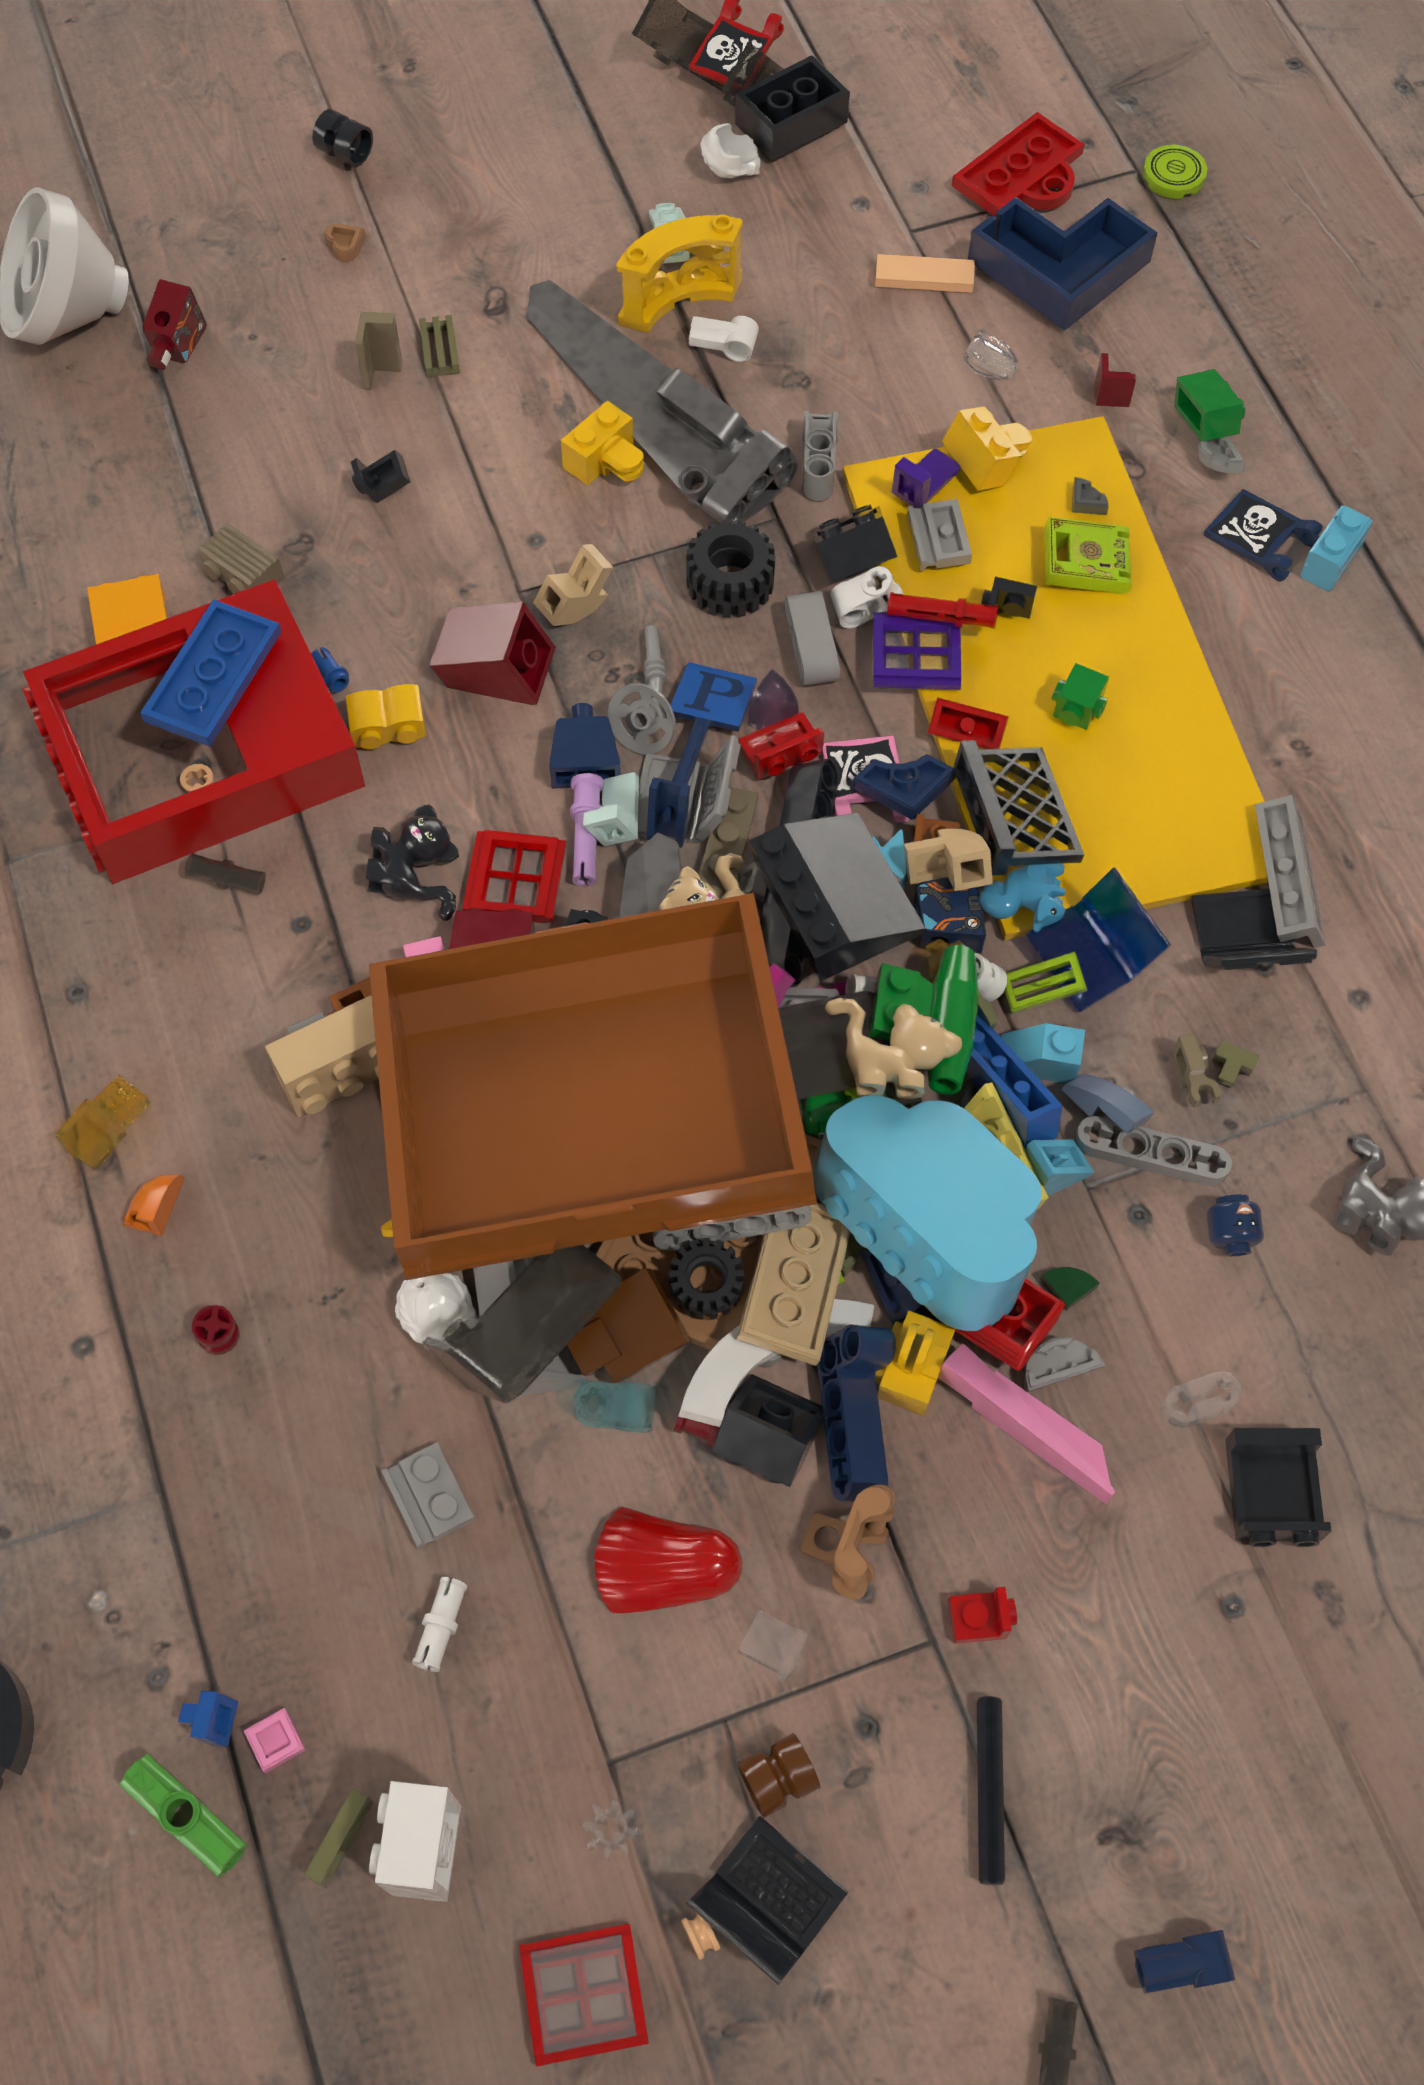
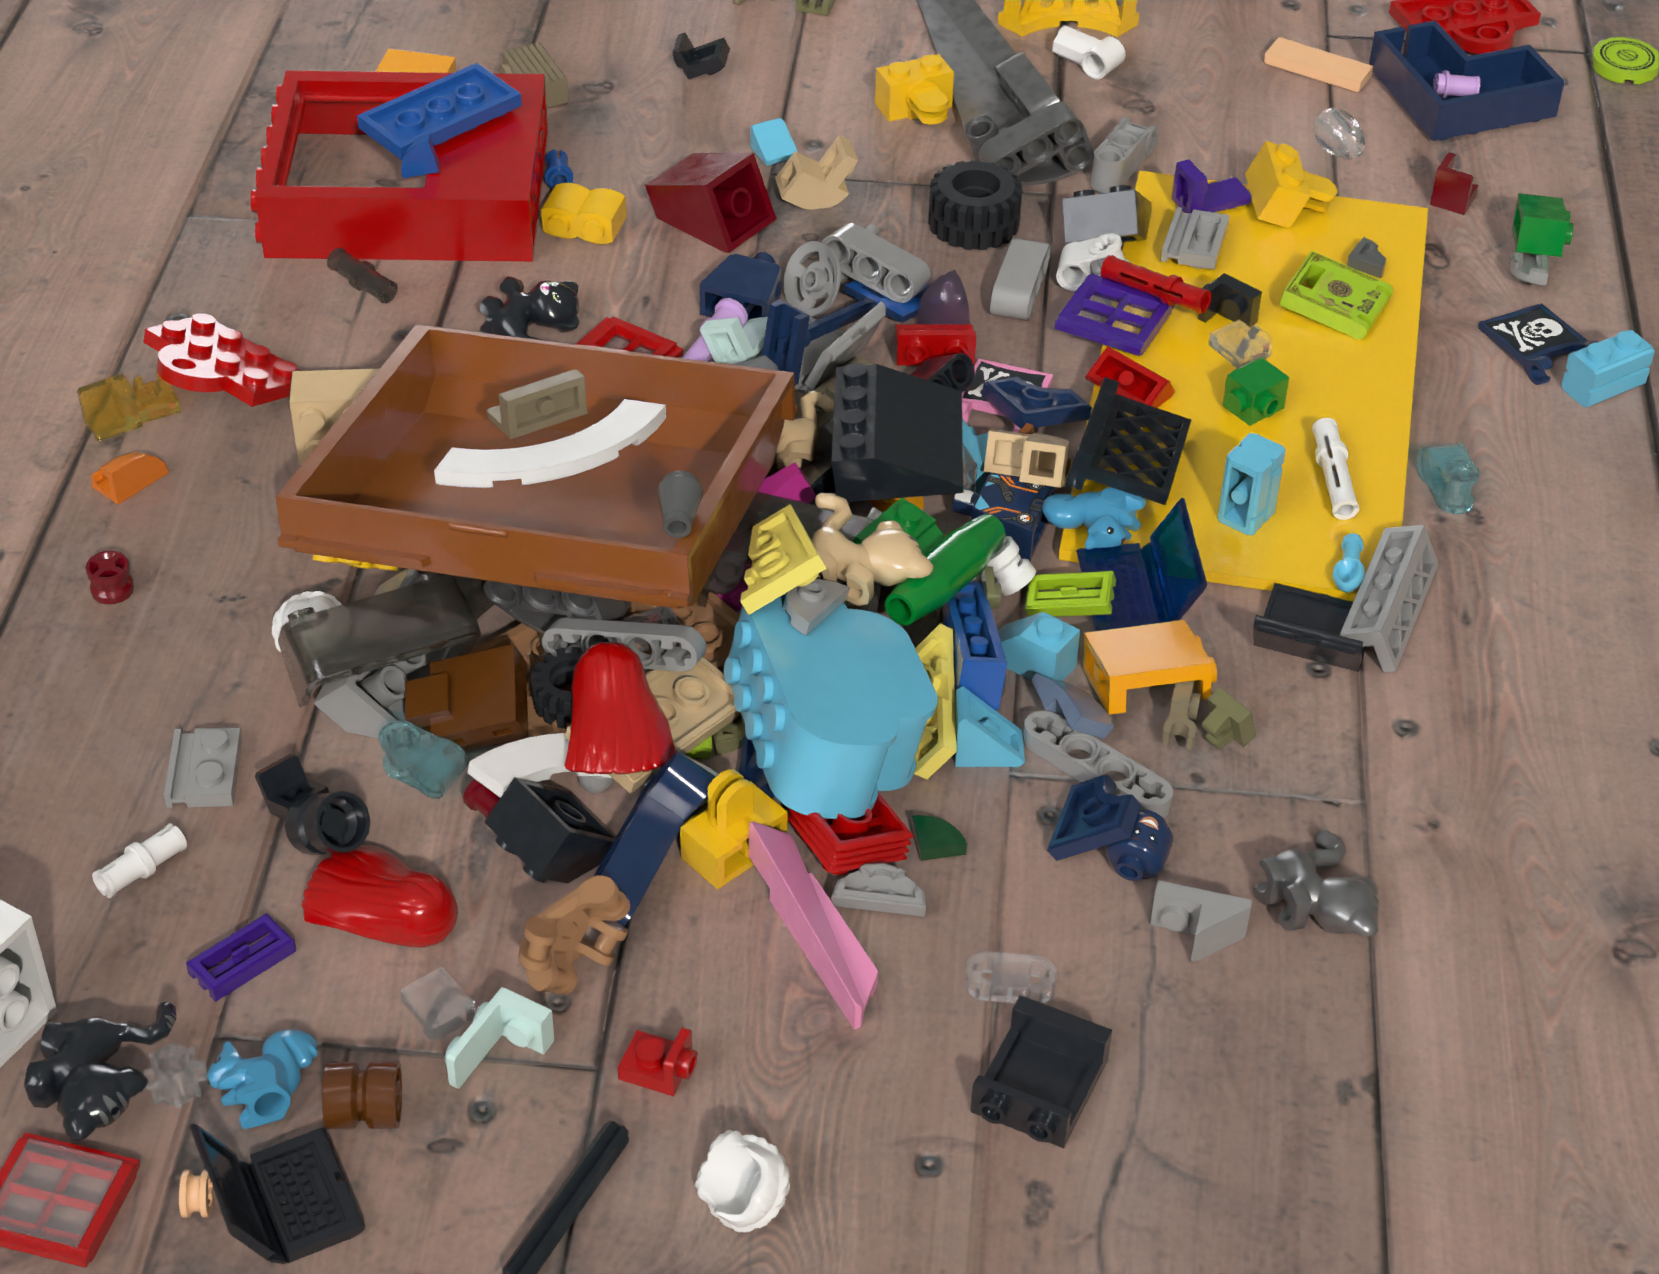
camera: 25 degrees right, 20 degrees down
(162, 1036) = (212, 358): none -> red plate
(229, 741) = (420, 158): none -> blue tile
(504, 557) = (772, 141): none -> medium azure slope
(529, 1493) = (284, 784): none -> black bracket
(557, 1884) = (76, 1074): none -> black animal
(563, 1037) = (540, 404): none -> dark tan panel
(568, 1713) = (245, 961): none -> dark purple tile
(587, 1519) = (327, 823): none -> black wheel
(622, 1098) = (594, 446): none -> white tile
(689, 1794) = (265, 1080): none -> dark azure animal
(690, 678) = (860, 249): none -> light grey beam
(774, 1304) = (615, 715): none -> red hair
(775, 1117) = (679, 501): none -> dark grey cone
(843, 1094) = (780, 559): none -> light yellow wing
(860, 1638) = (508, 1015): none -> light aqua bracket
(886, 1126) = (813, 603): none -> light grey plate
(1036, 643) = (1241, 343): none -> clear tile
(1054, 264) = (1455, 85): none -> lavender pin
(1121, 1707) = (743, 1181): none -> white hair
(1141, 811) = (1251, 484): none -> medium azure brick
(1145, 1034) = (1145, 658): none -> light orange panel
(1161, 722) = (1343, 497): none -> white pin
(1186, 1217) = (1093, 818): none -> dark blue tile
(1249, 862) = (1349, 571): none -> medium azure piece
(1267, 713) = (1448, 475): none -> clear light blue piece
(1321, 1271) = (1211, 916): none -> light grey slope

